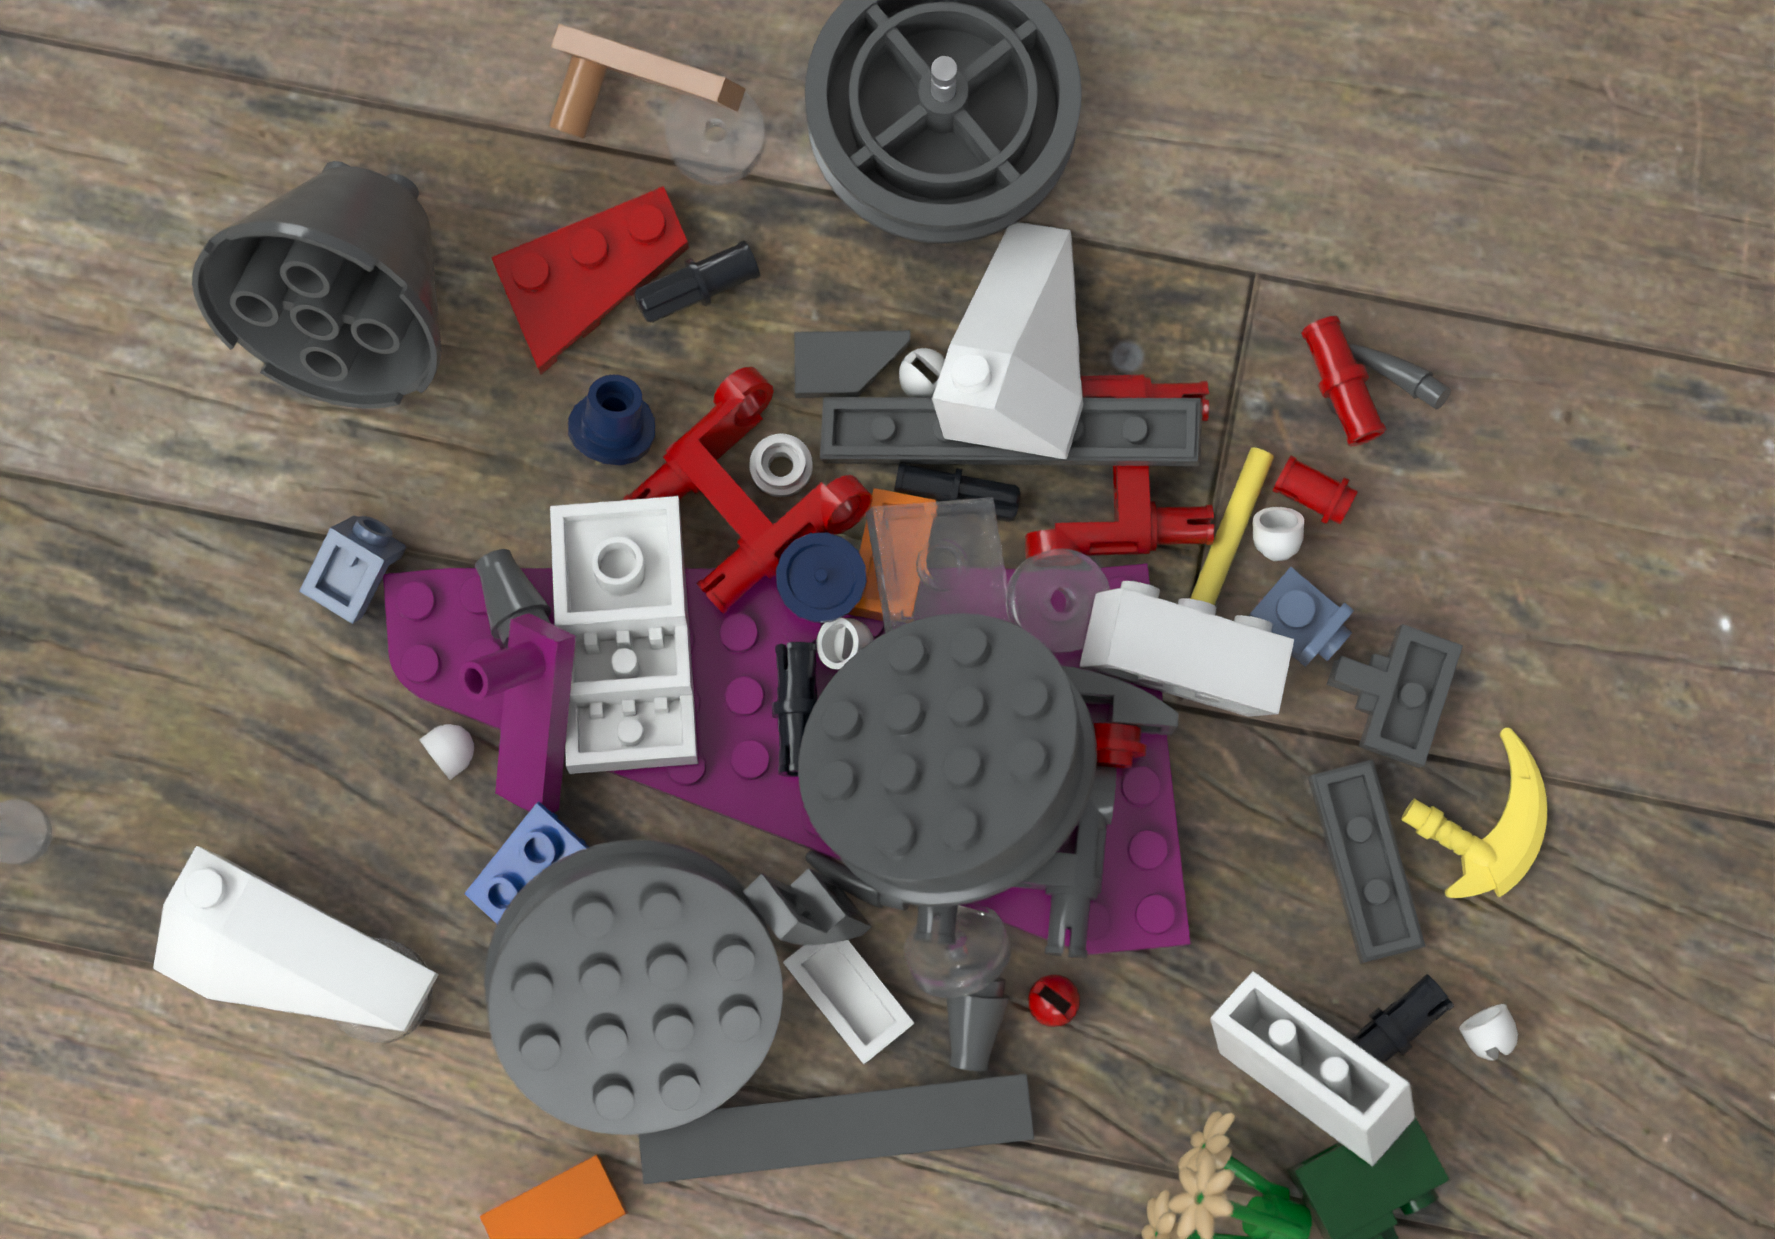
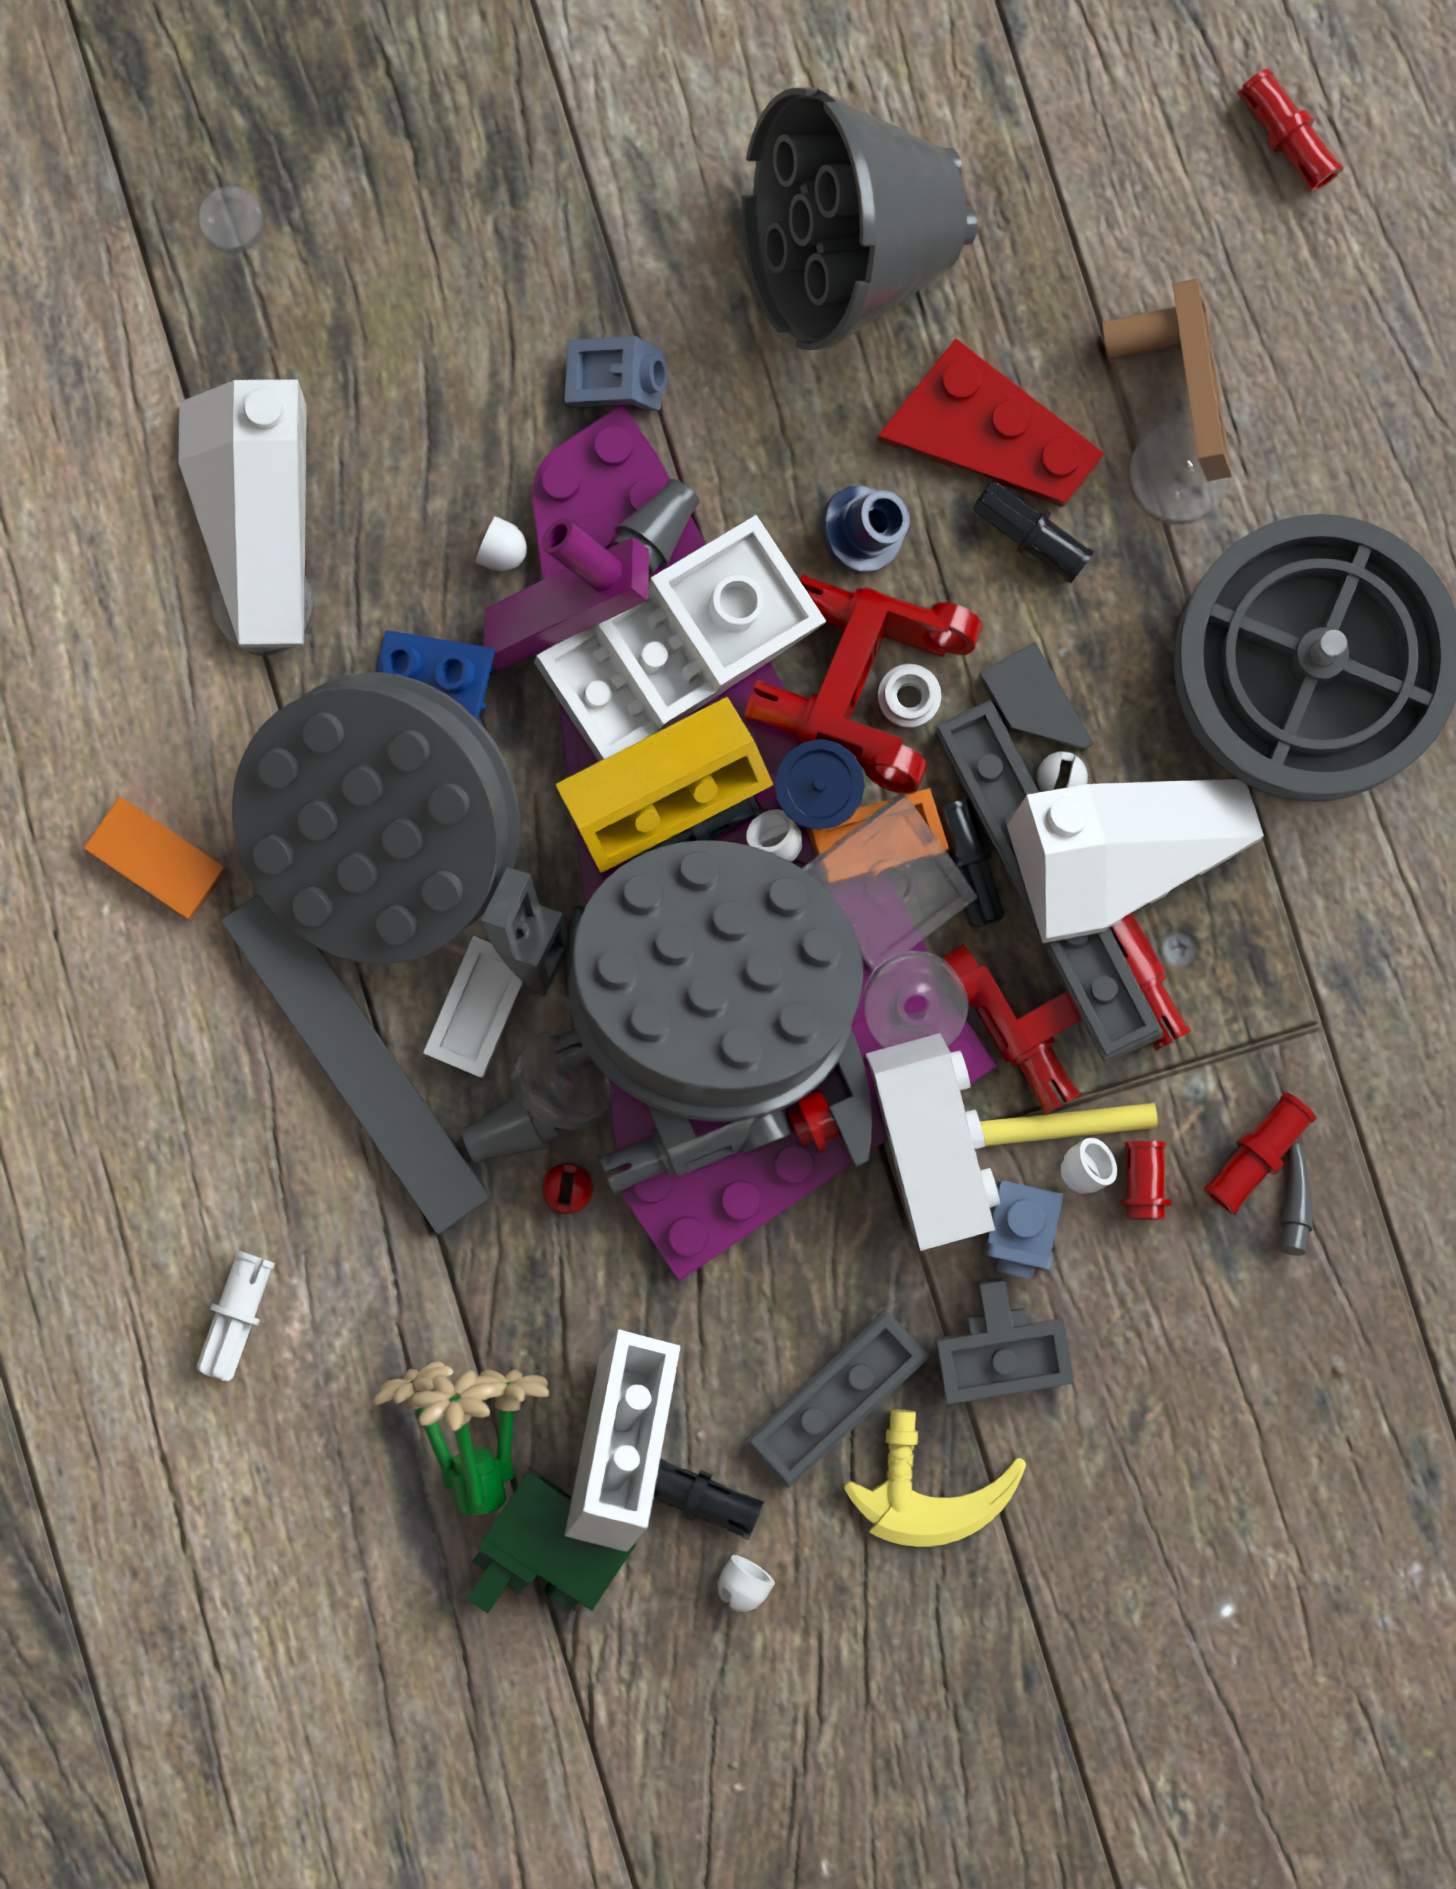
camera: 60 degrees right, 5 degrees up
(745, 713) = (664, 784): none -> yellow brick

